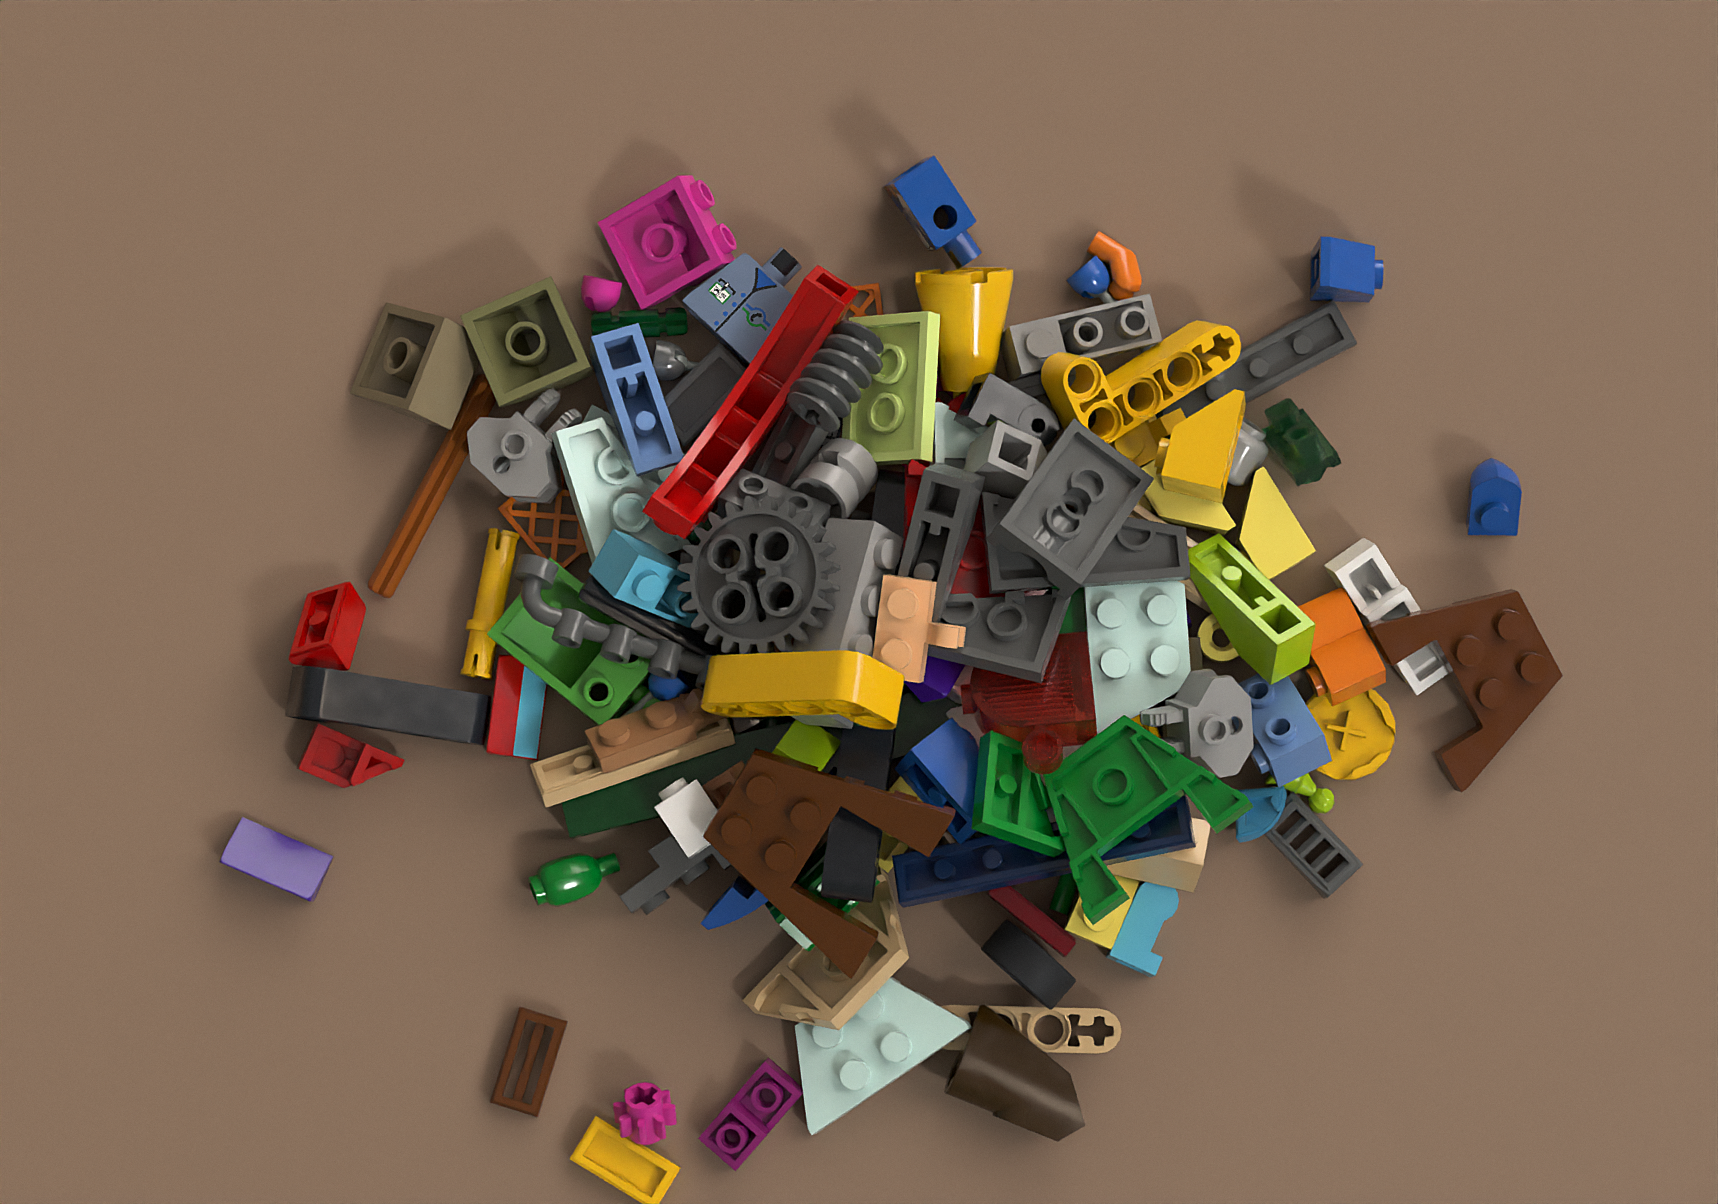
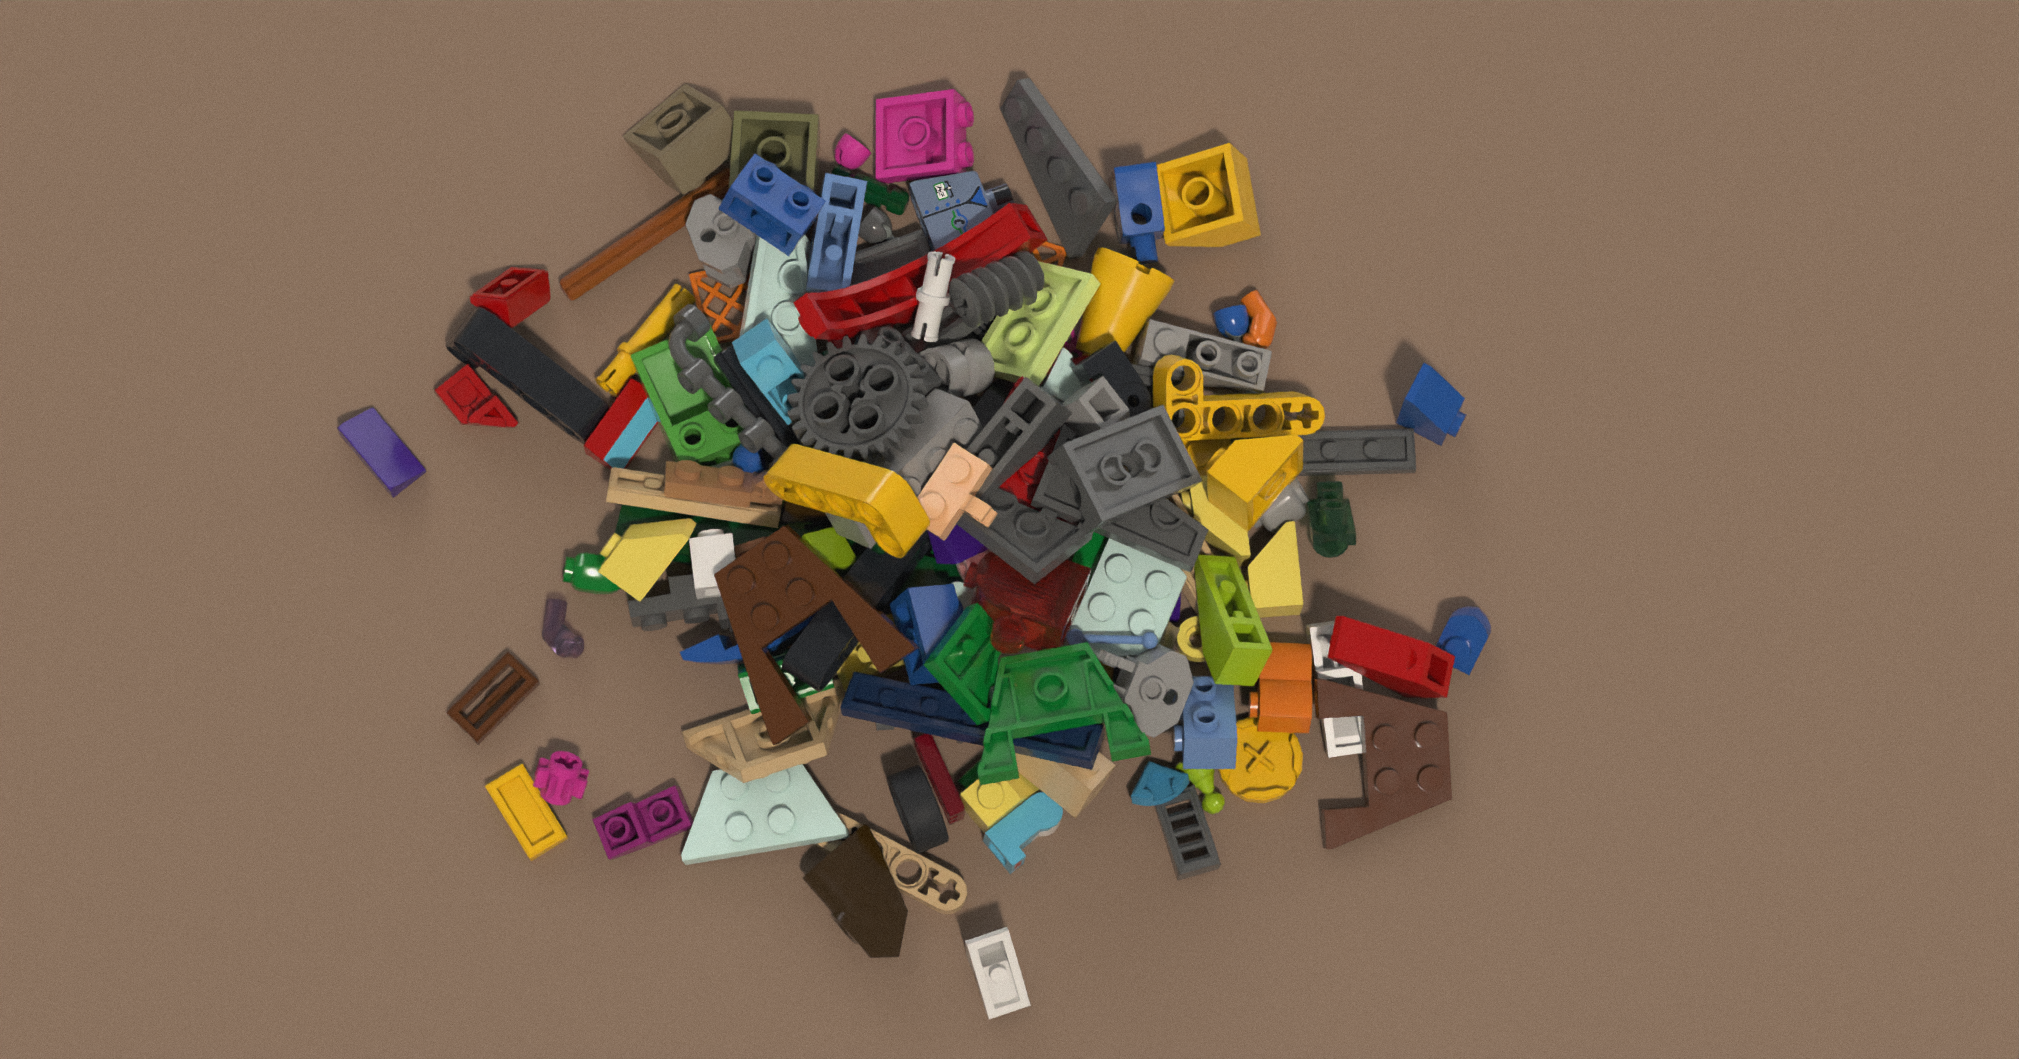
camera: 25 degrees right, 10 degrees down
(556, 403) = (771, 204): none -> blue brick
(559, 962) = (557, 634): none -> arm
(613, 841) = (643, 554): none -> light yellow slope
(775, 420) = (933, 296): none -> white pin
(836, 209) = (1059, 168): none -> dark grey wing
(1001, 160) = (1208, 199): none -> yellow slope
(1181, 674) = (1148, 640): none -> medium blue hinge
(1194, 1093) = (997, 973): none -> white slope
(1436, 566) = (1391, 659): none -> red slope

